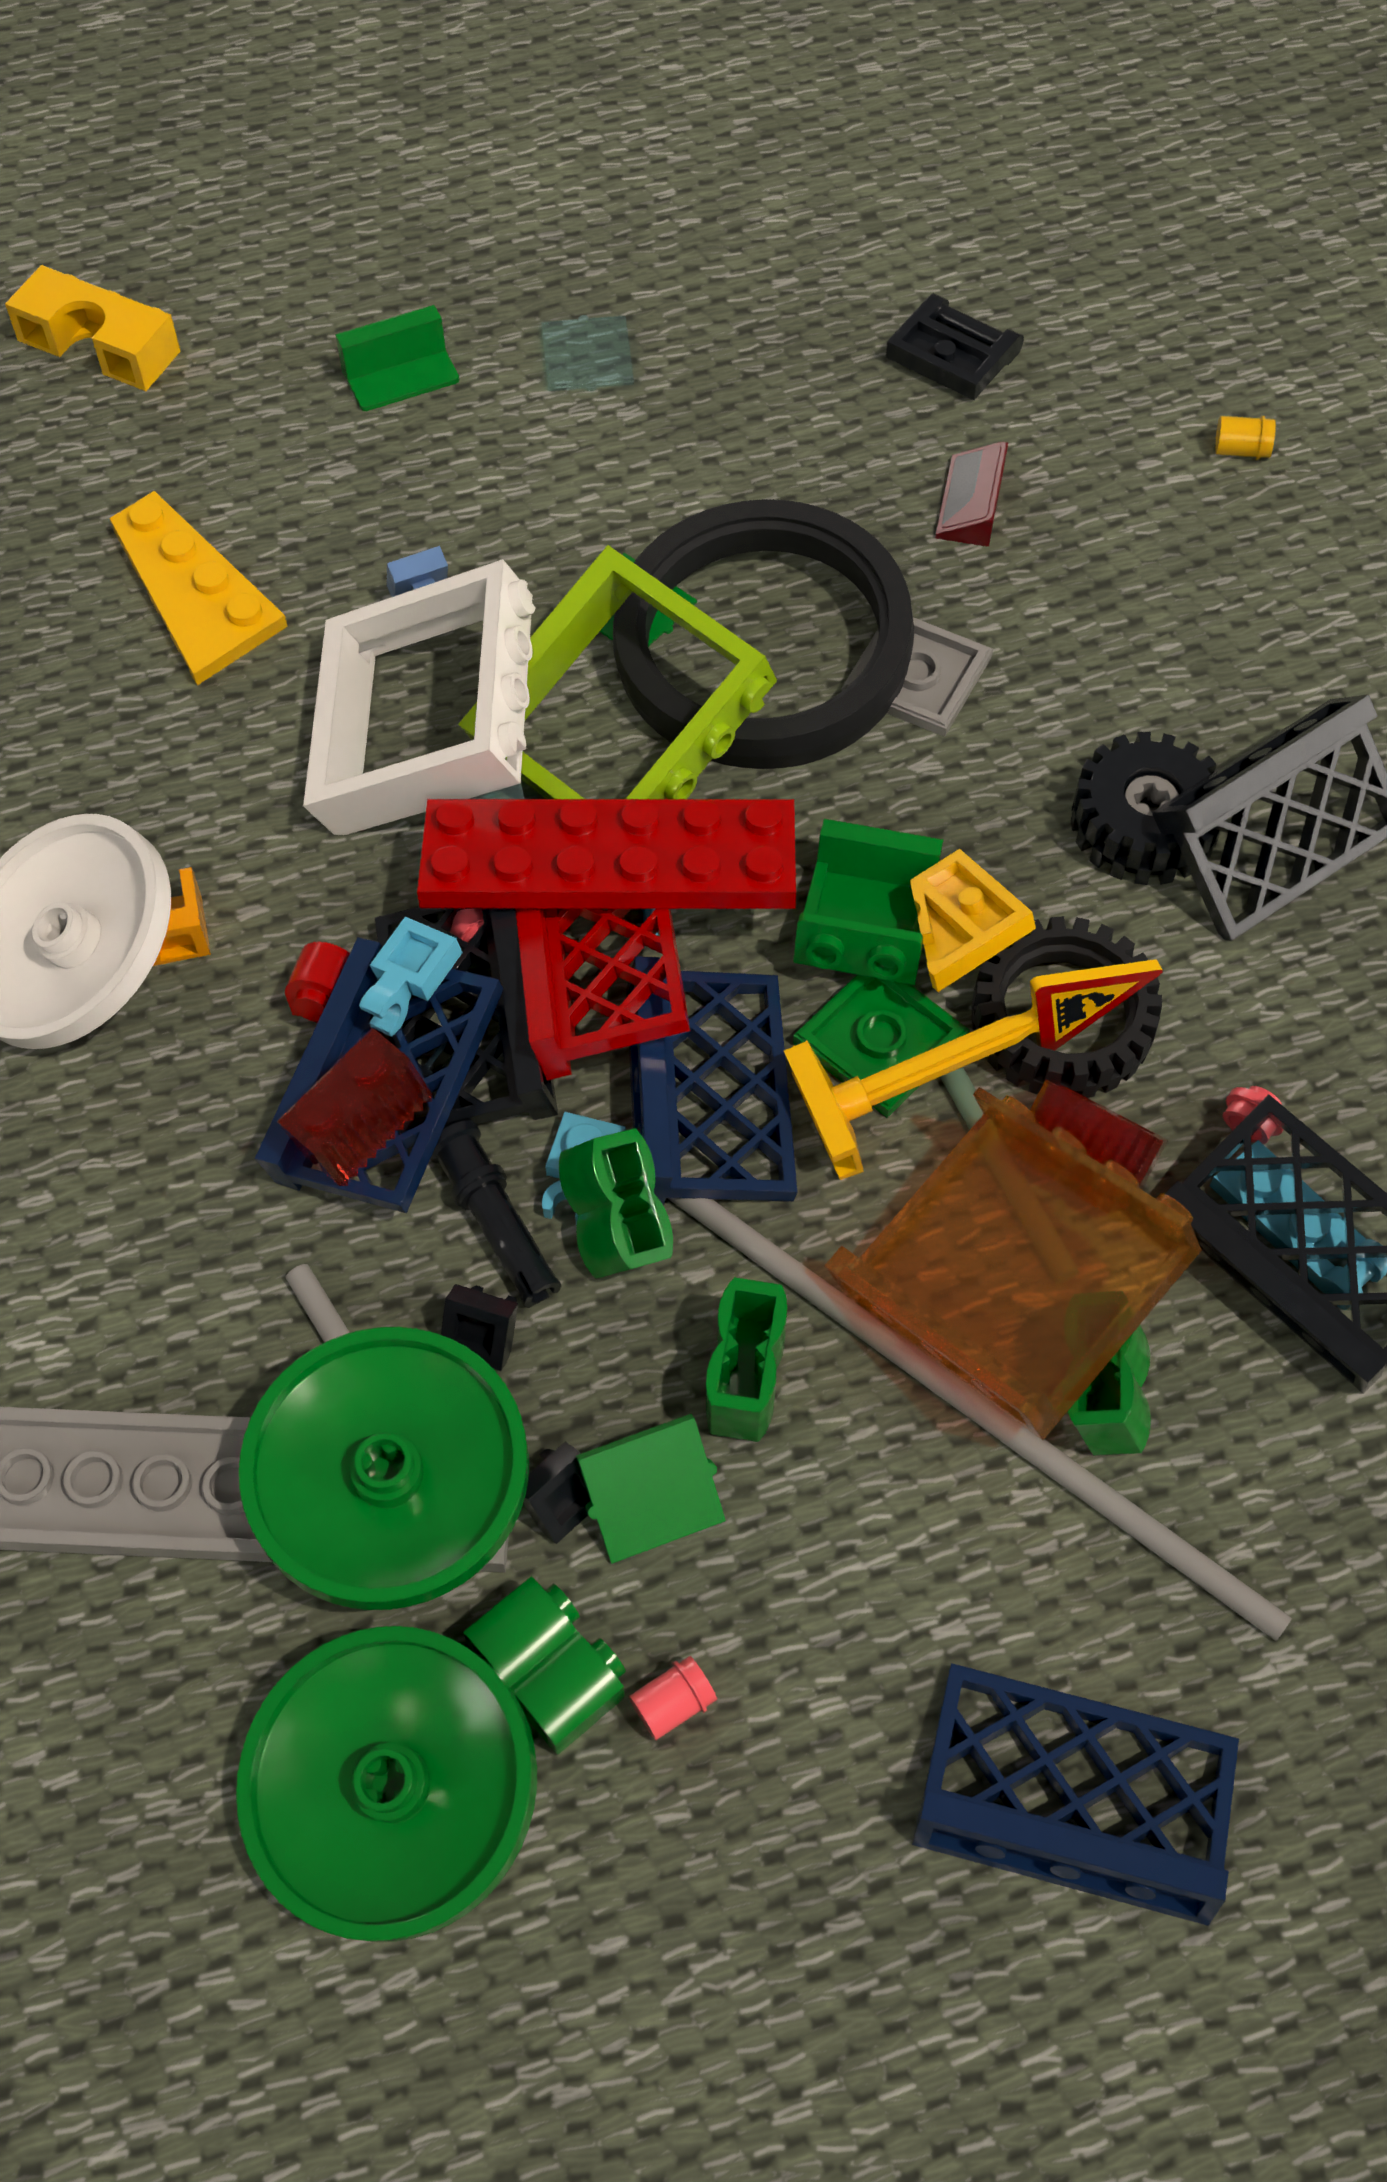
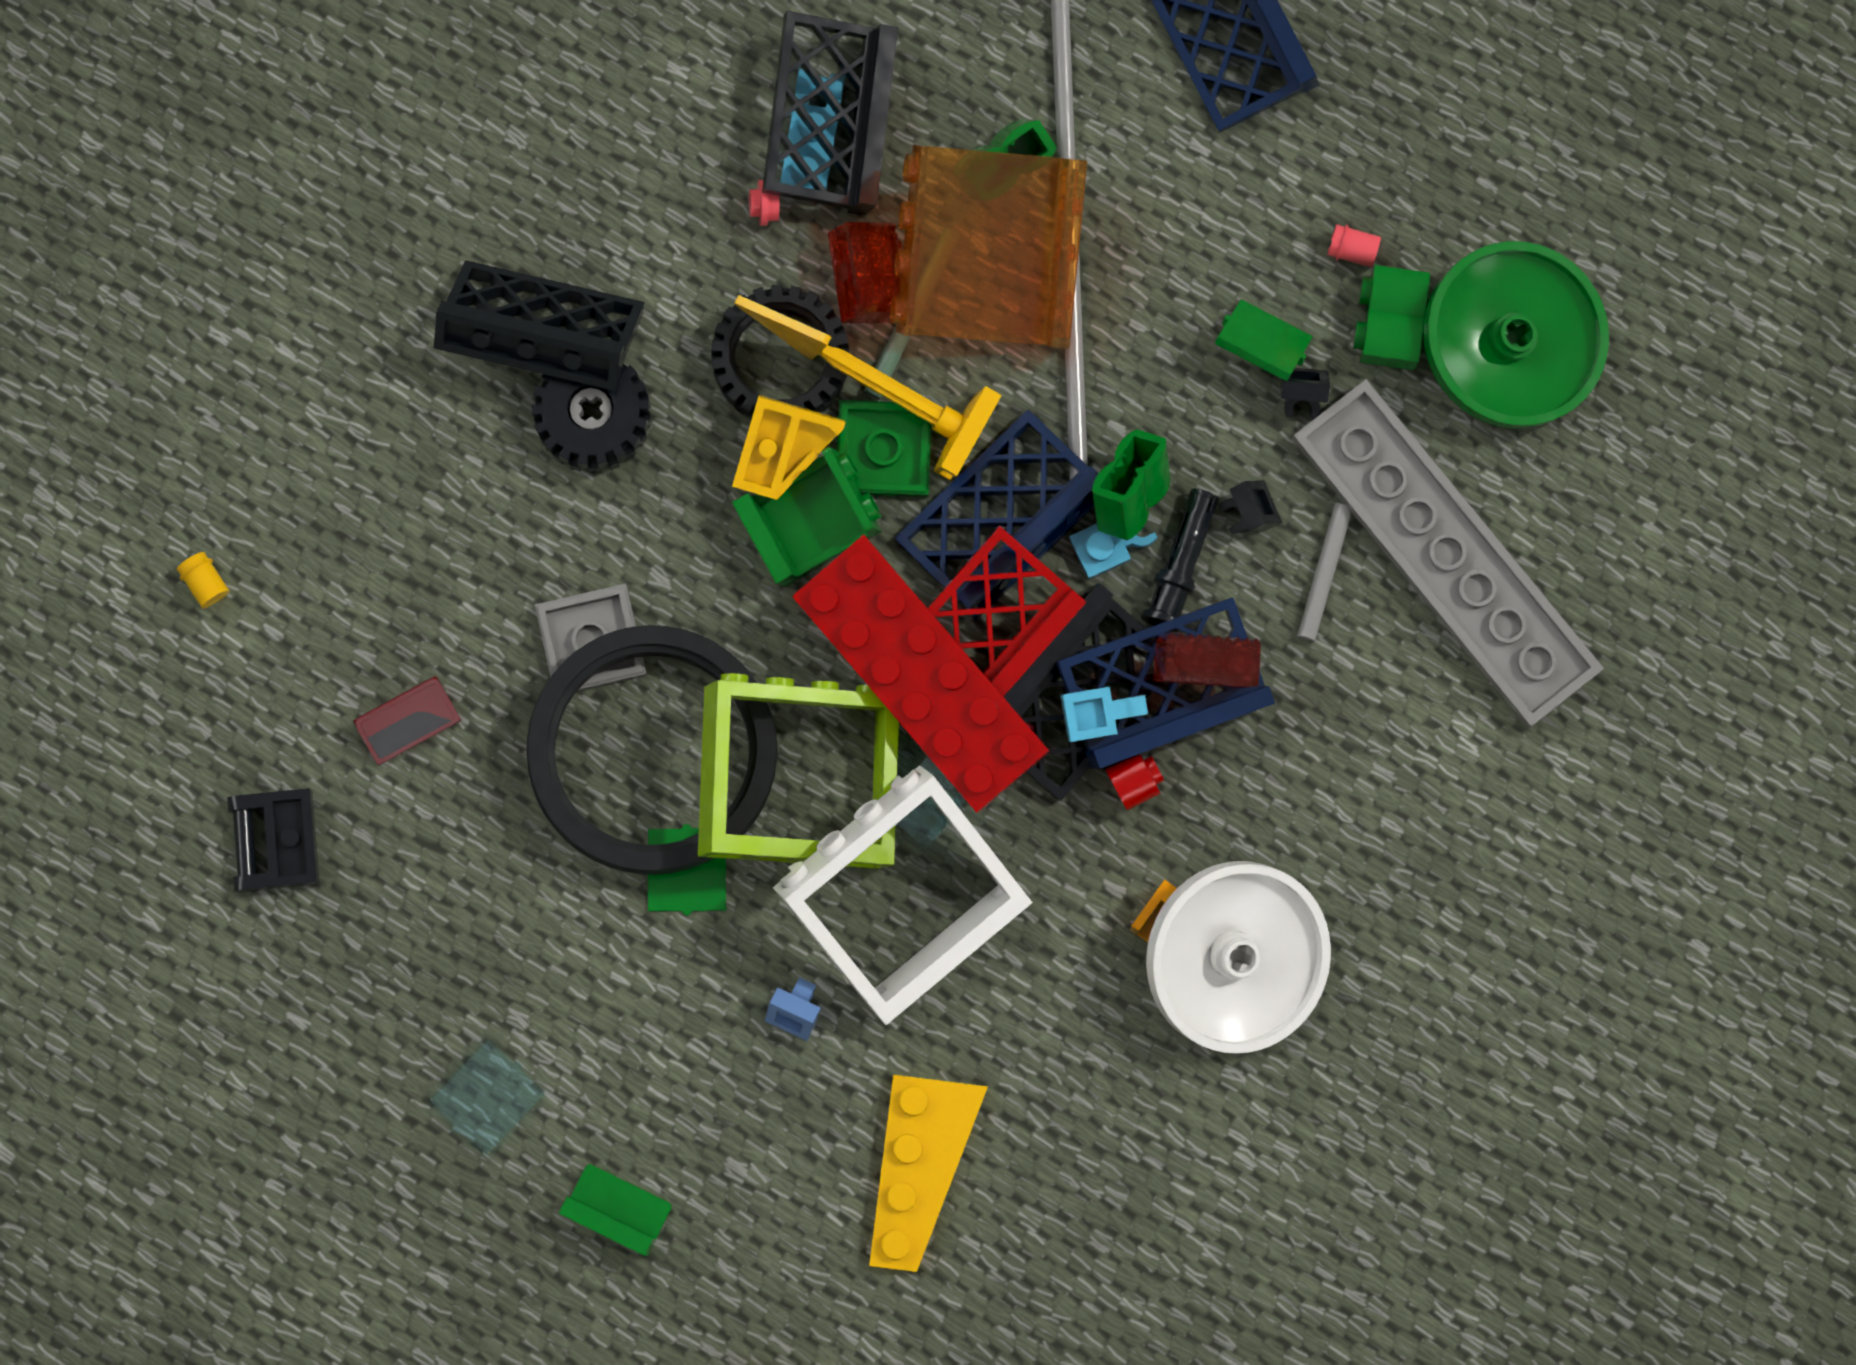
camera: 130 degrees left, 20 degrees up
(384, 1468) = (1380, 463): green dish -> none
(746, 1359) = (1168, 342): green brick -> none

